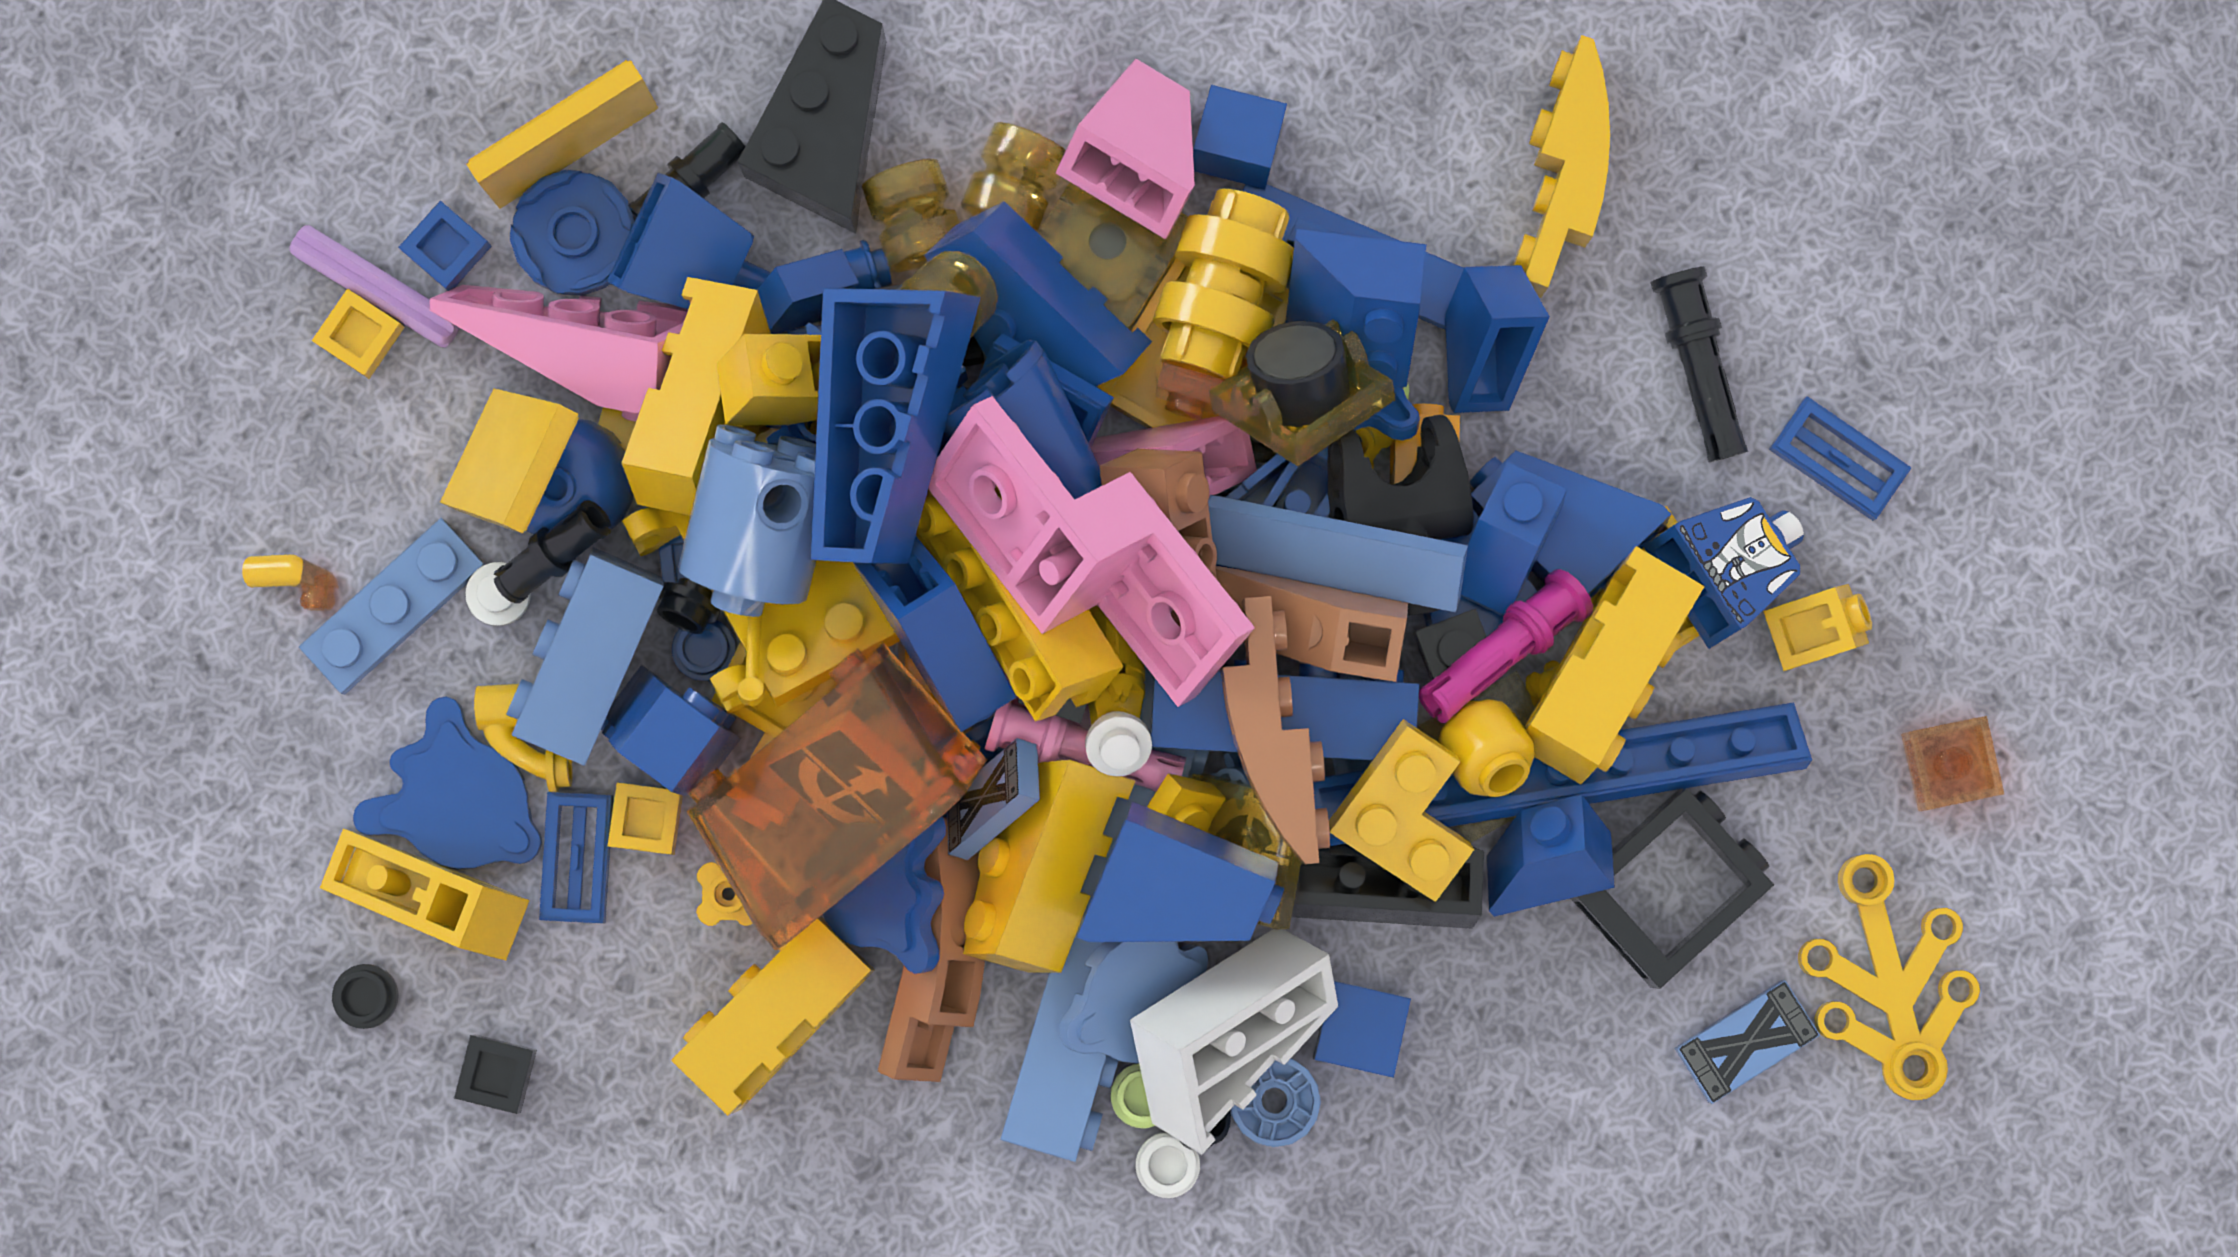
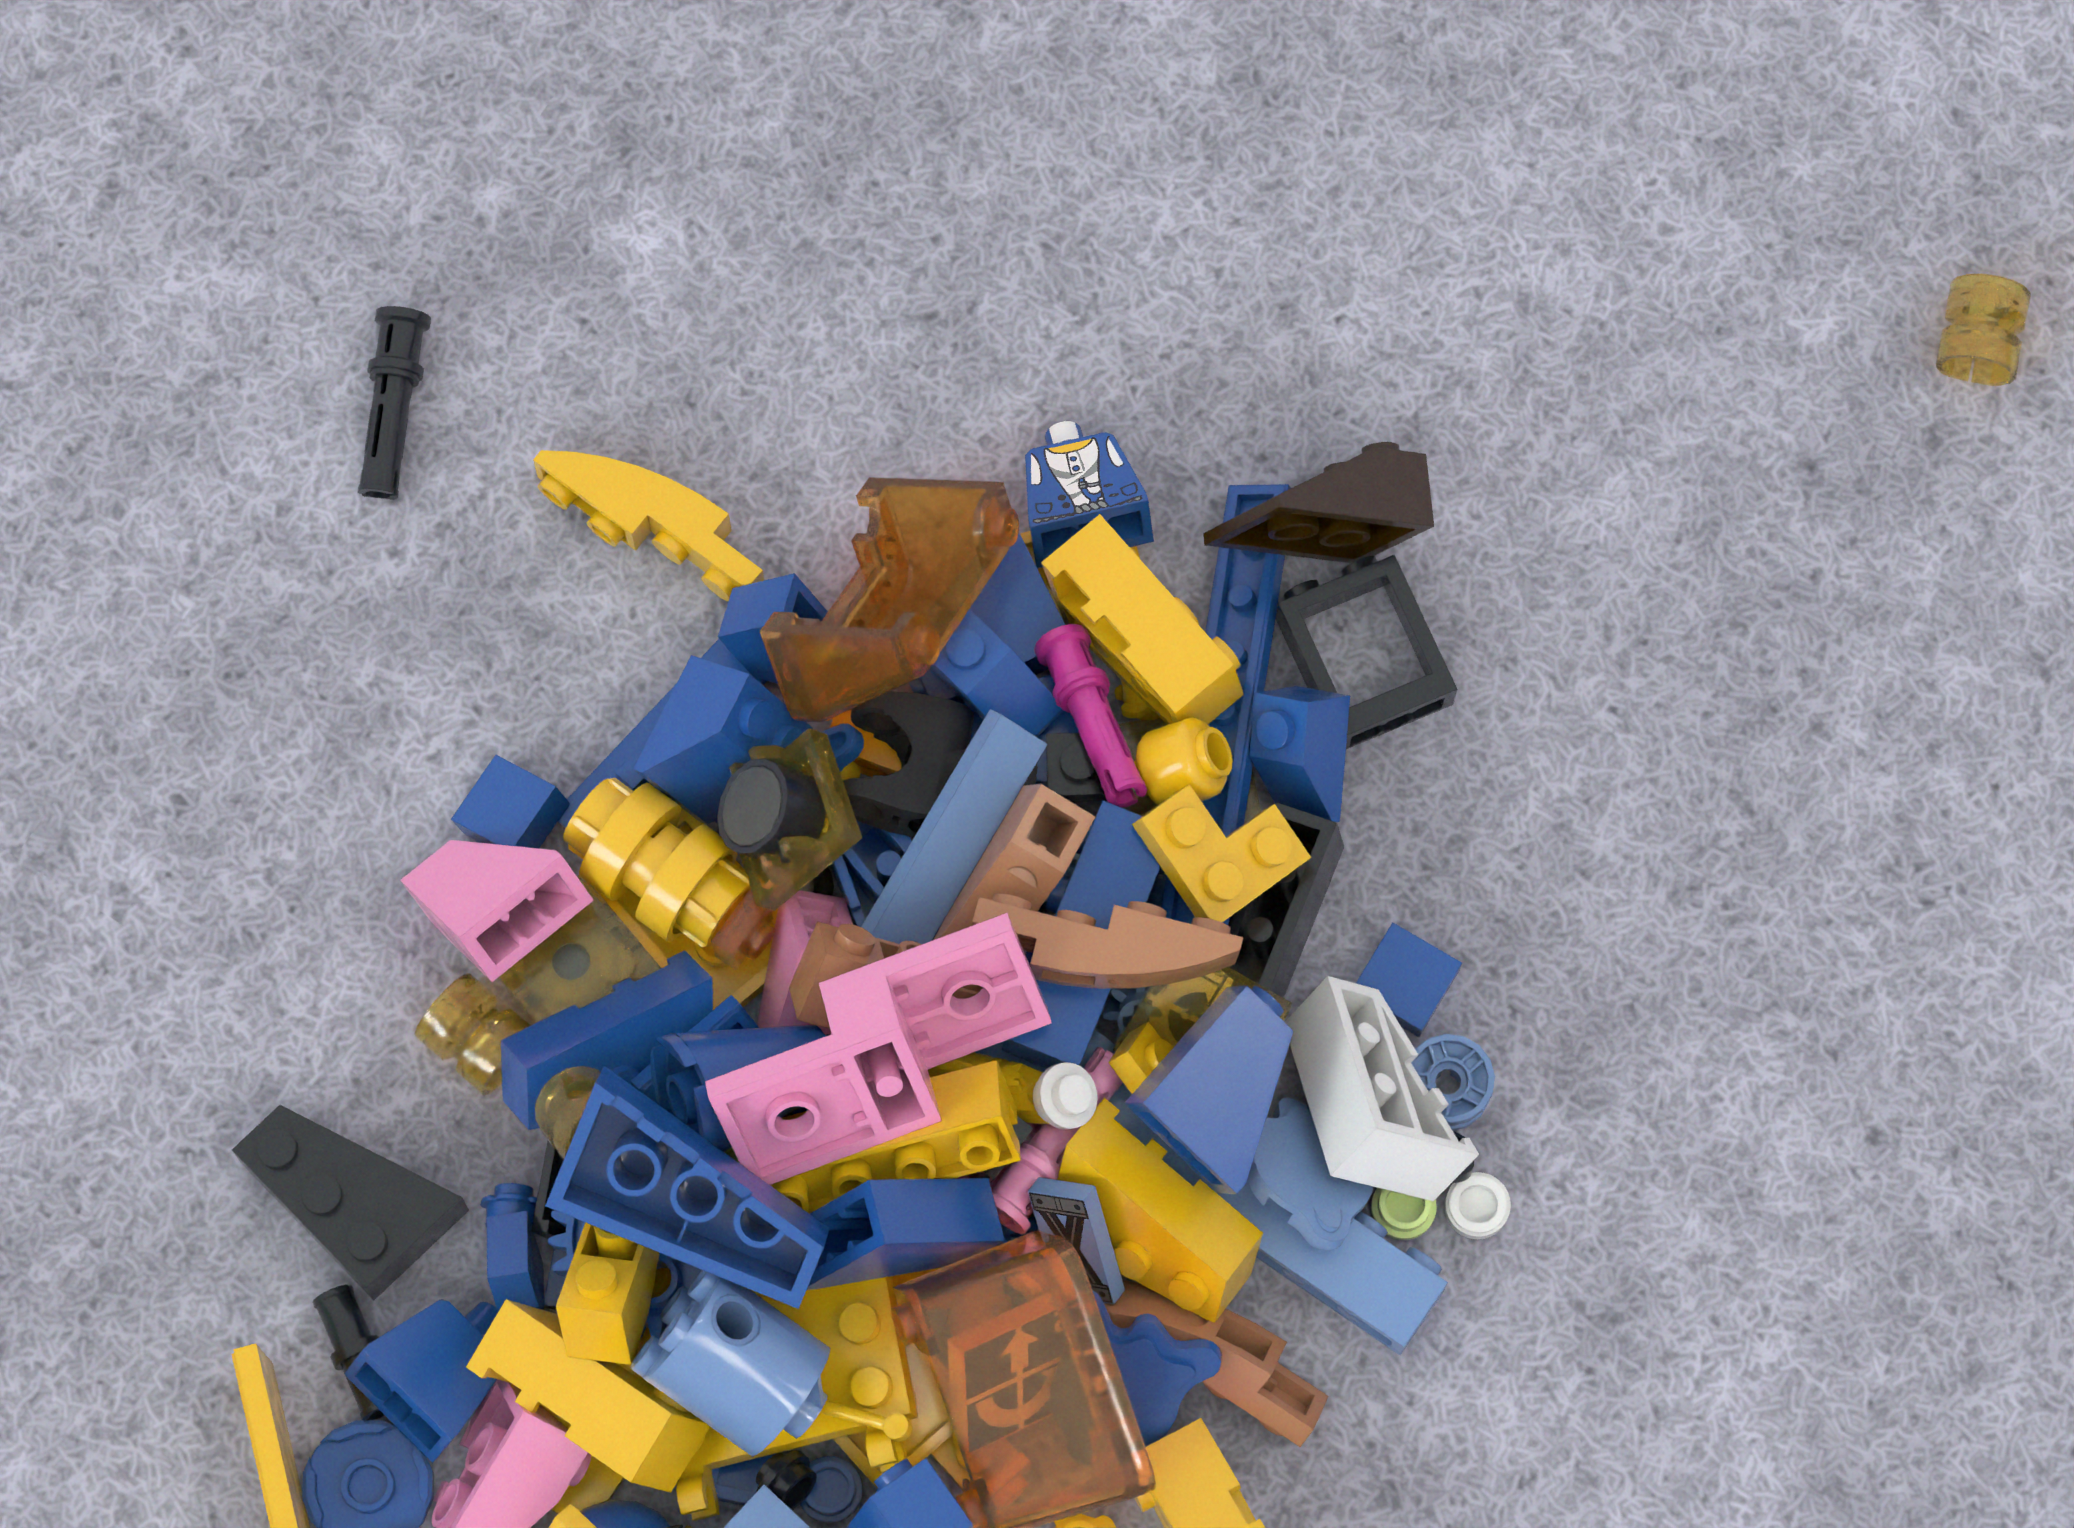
camera: 70 degrees left, 10 degrees down
(898, 199) = (474, 1142): clear yellow wheel -> none
(1588, 436) = (917, 577): none -> clear orange windscreen
(1695, 335) = (850, 457): black pin -> none
(1747, 1041) = (1531, 633): tile -> none
(1797, 818) = (1341, 513): none -> dark brown slope
(1818, 626) = (1165, 438): yellow bracket -> none
(1831, 482) = (972, 398): blue tile -> none
(1893, 988) = (1527, 486): yellow plant -> none
(1952, 763) = (1333, 363): clear orange piece -> none

